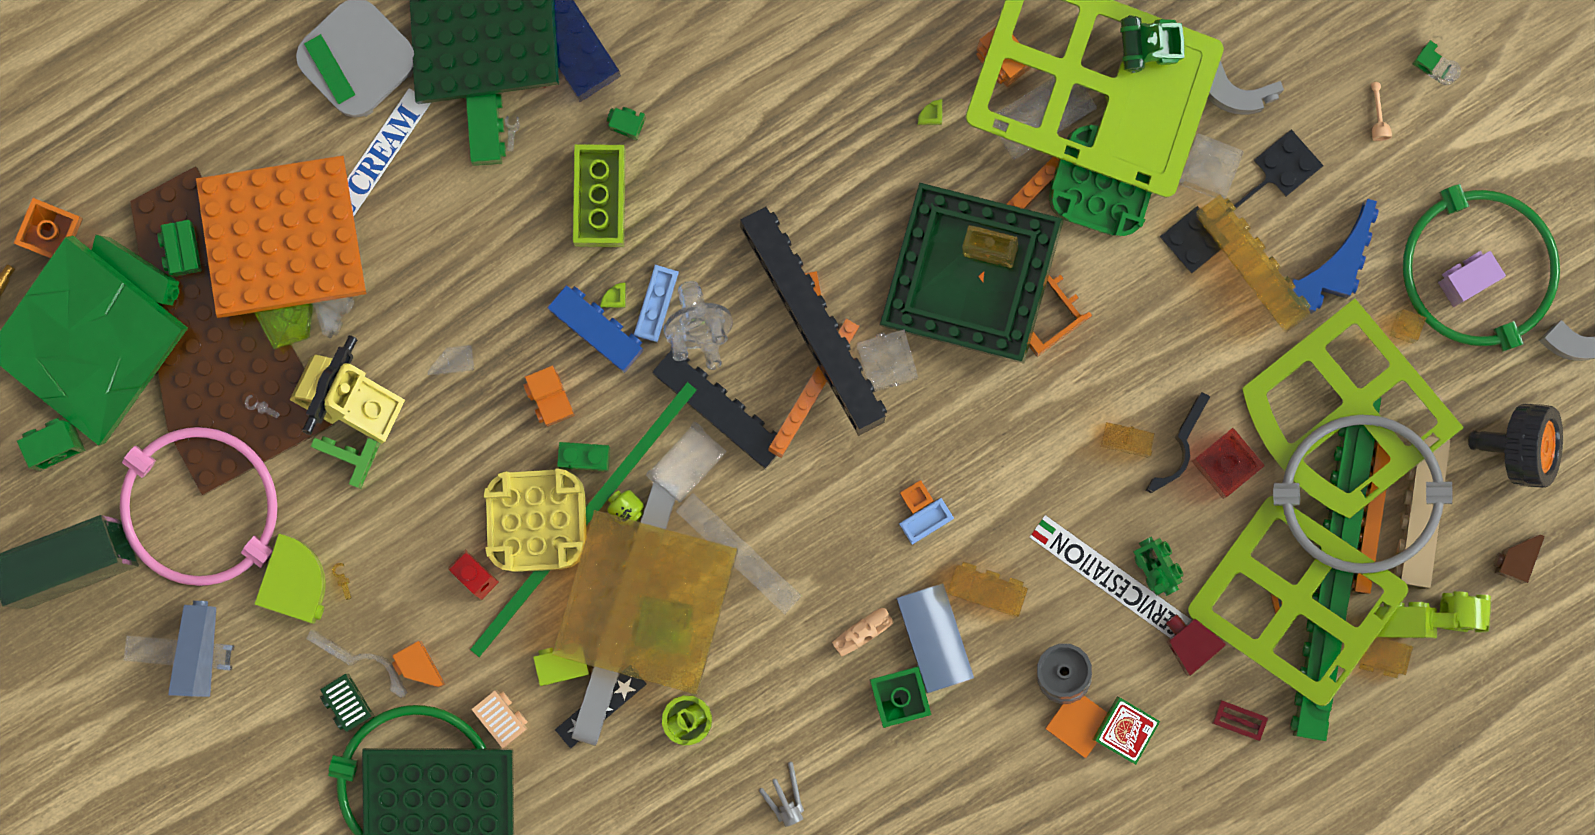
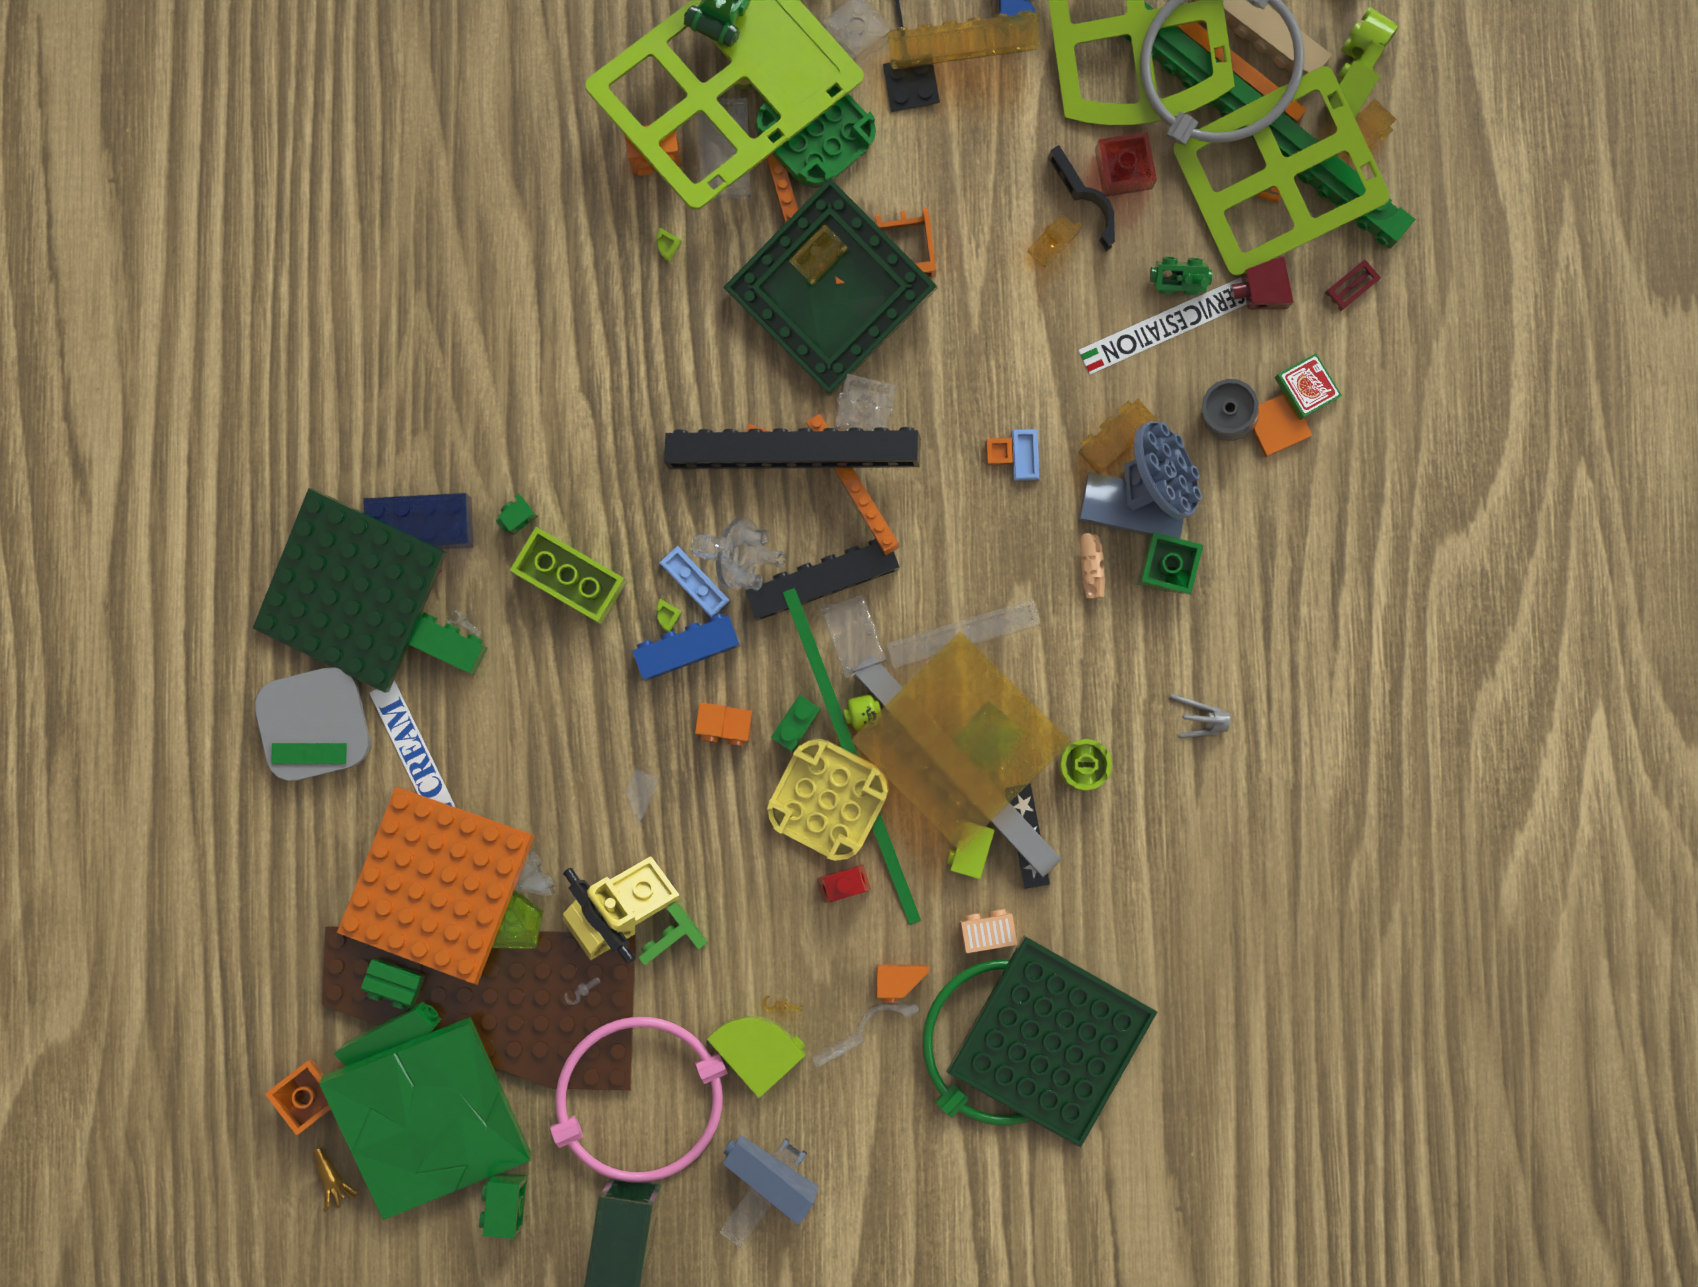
camera: 65 degrees left, 0 degrees up
(346, 702) = (895, 1064): dark green brick -> none
(974, 645) = (1162, 472): none -> sand blue bracket

